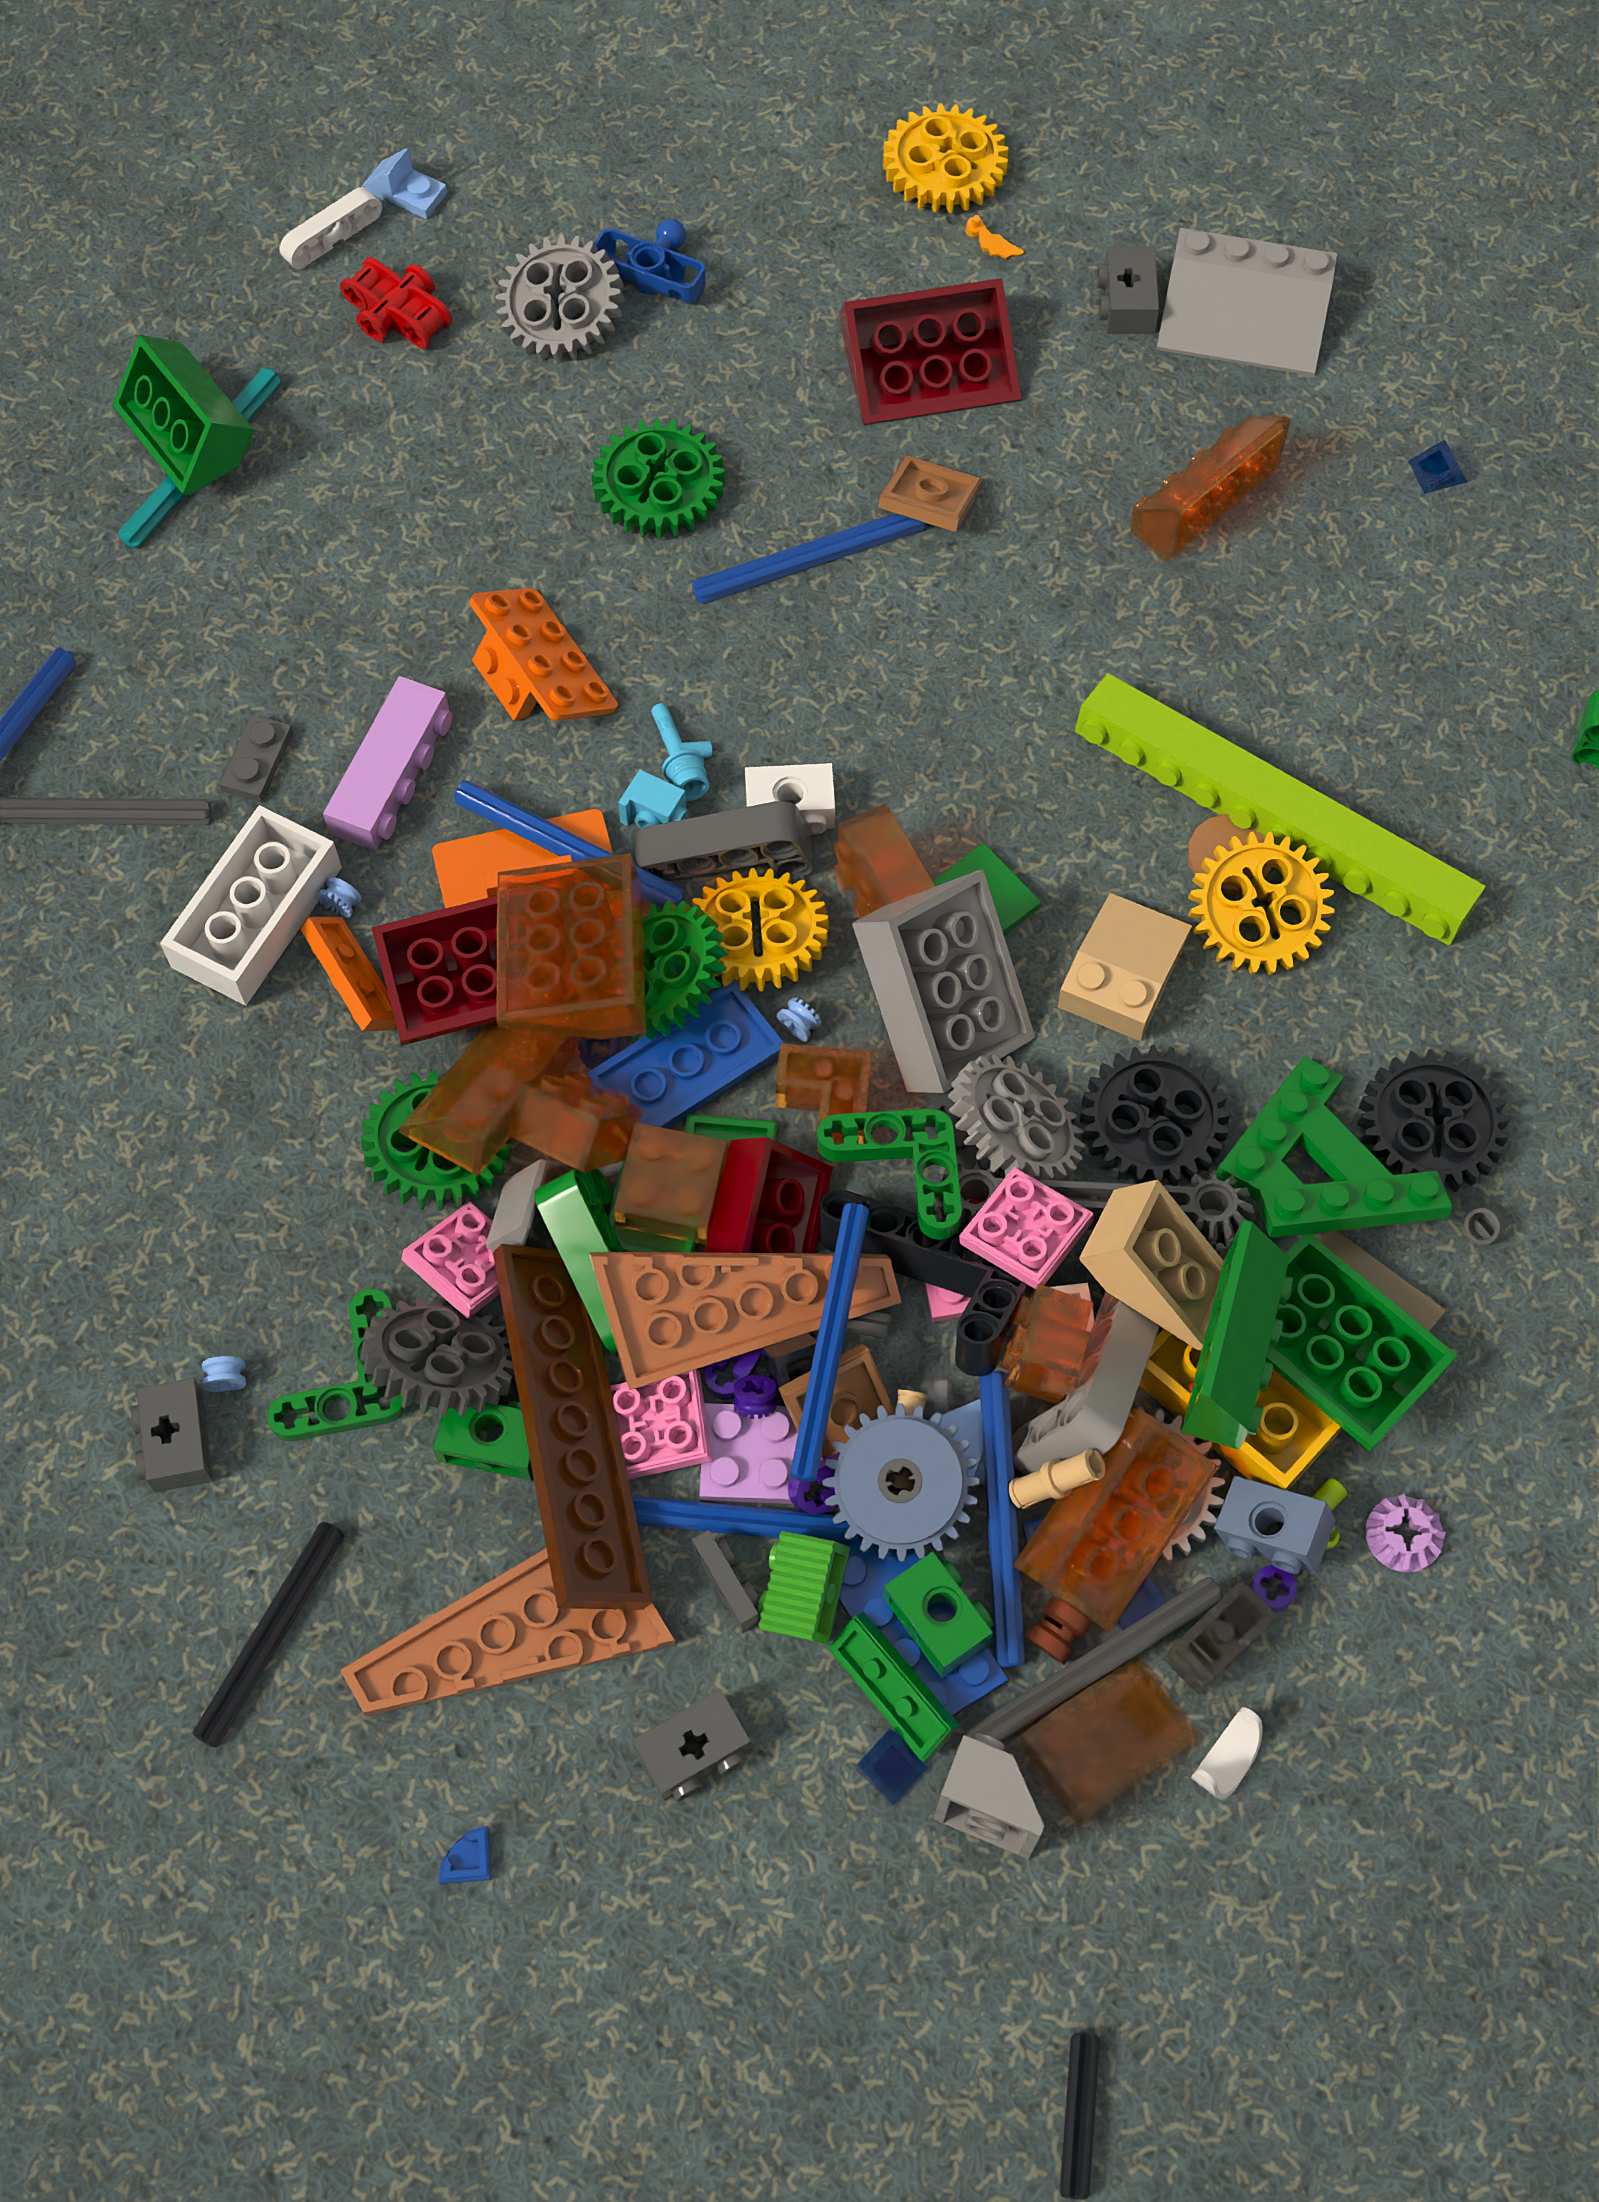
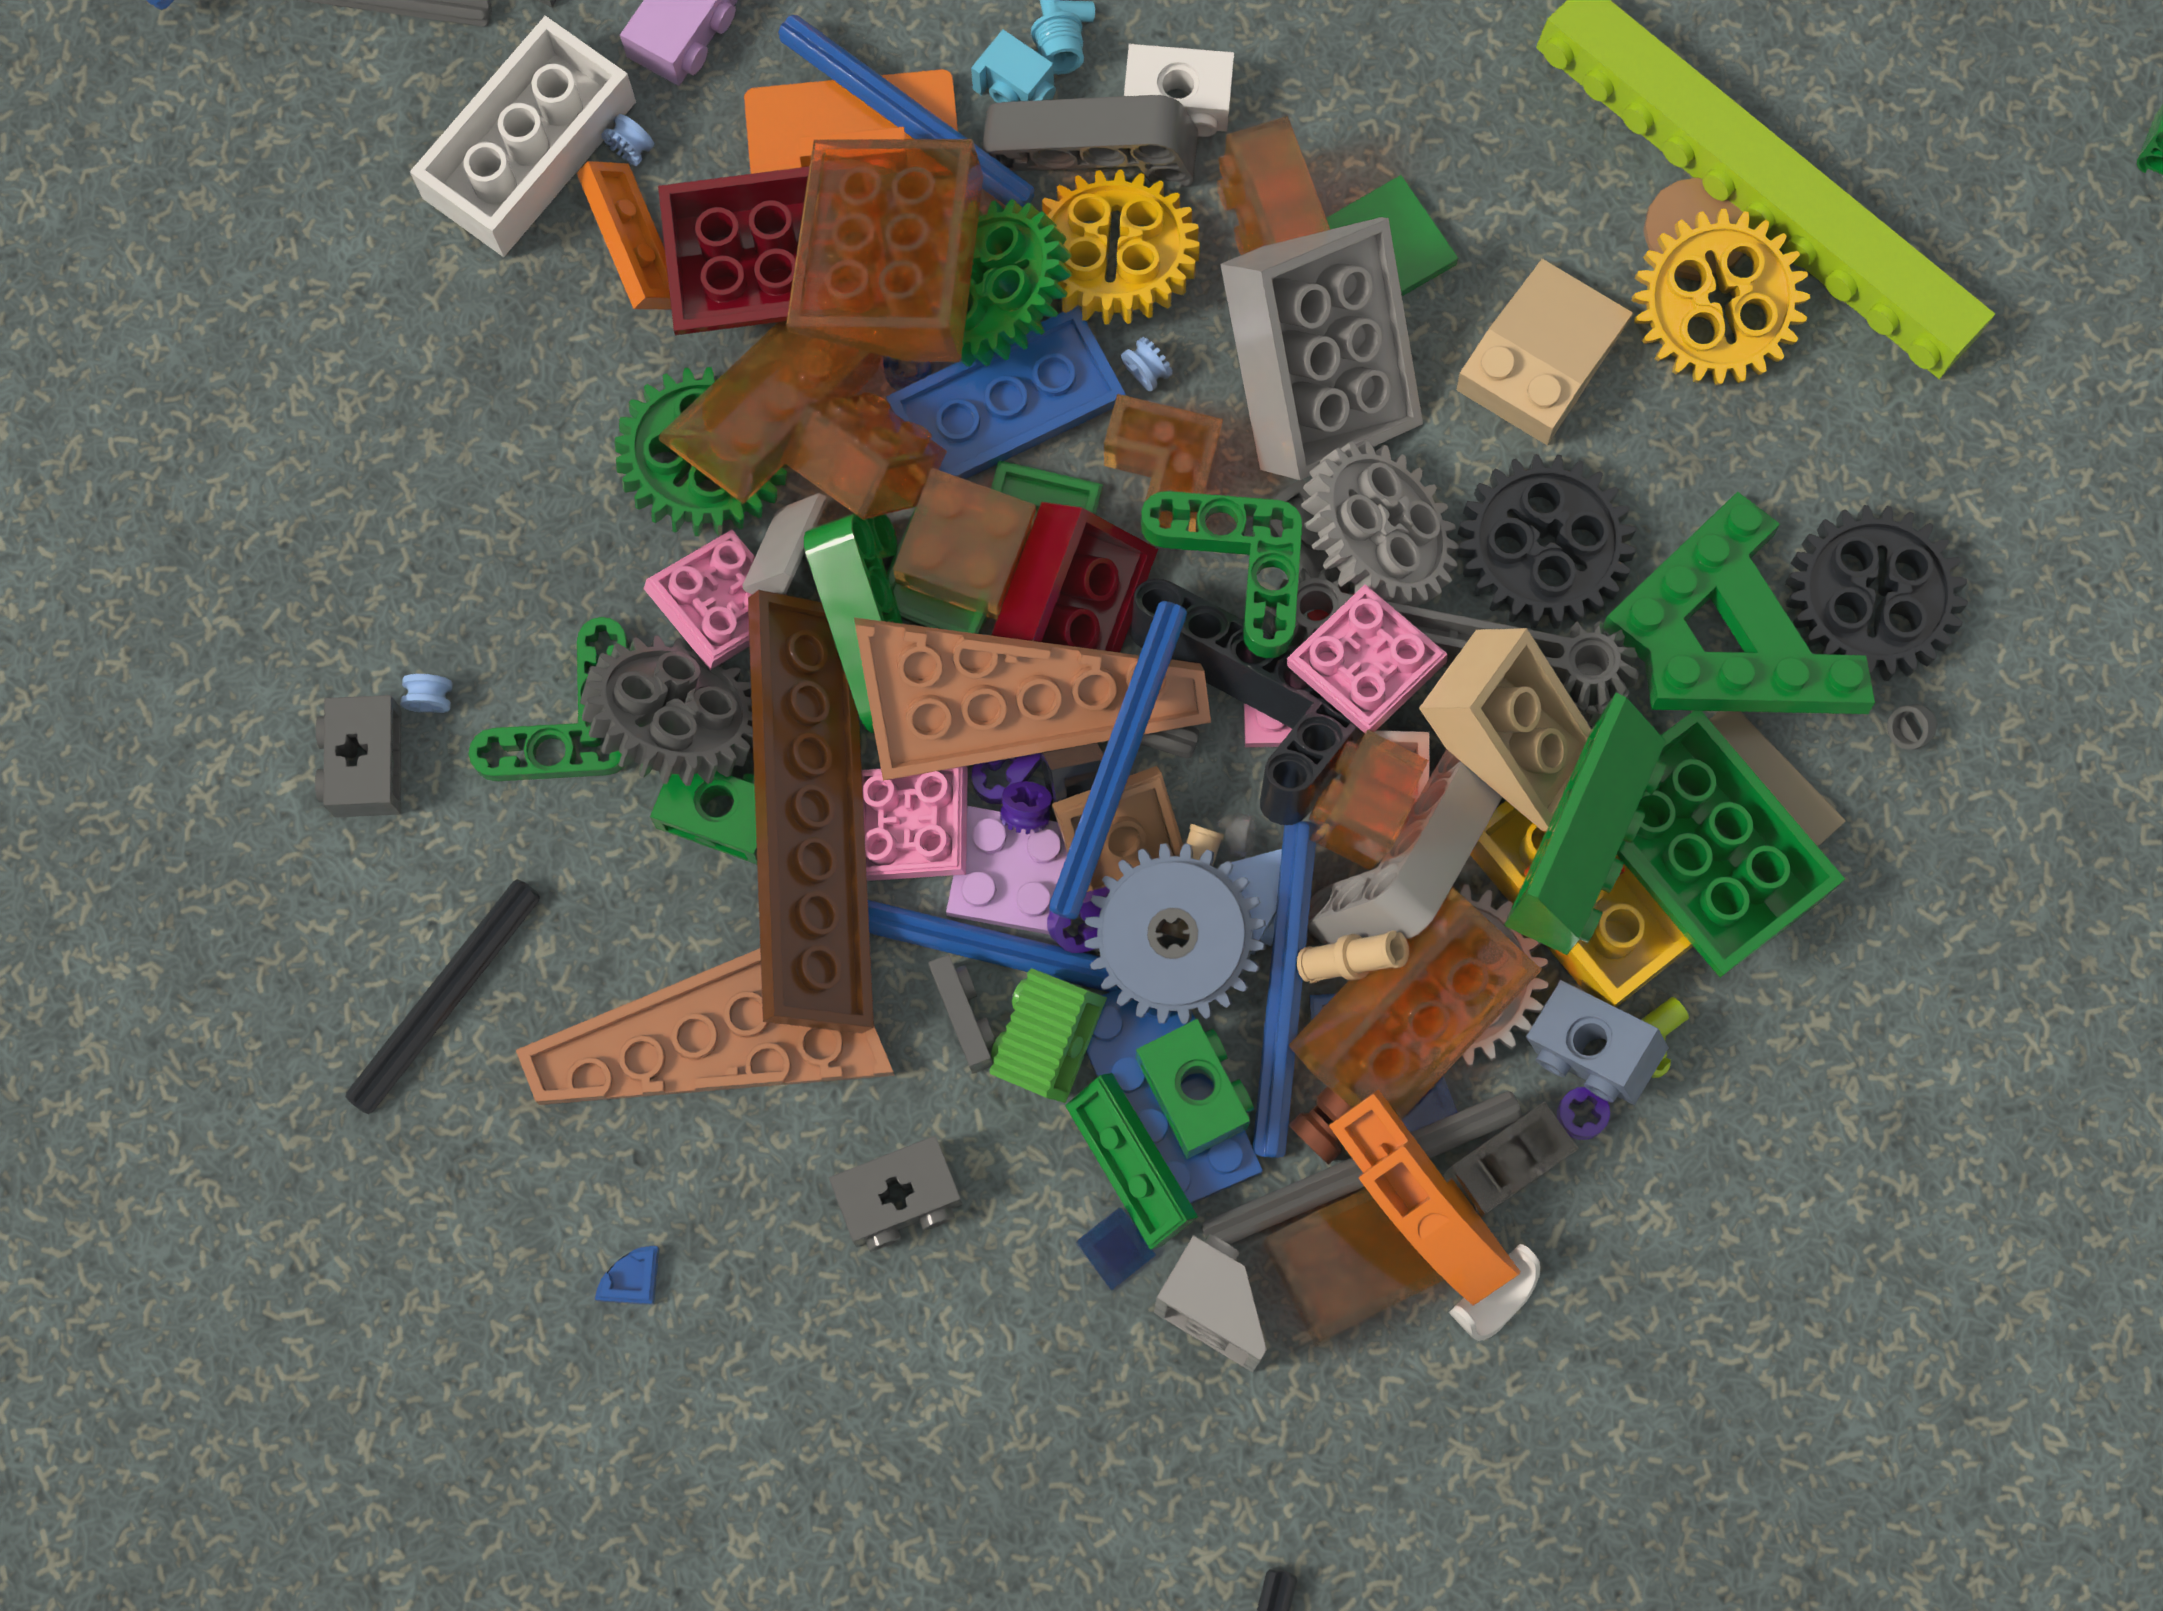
camera: 10 degrees right, 10 degrees up
(1152, 1682) = (1421, 1202): none -> orange slope
(1390, 1547) = (1727, 1086): lavender gear -> none

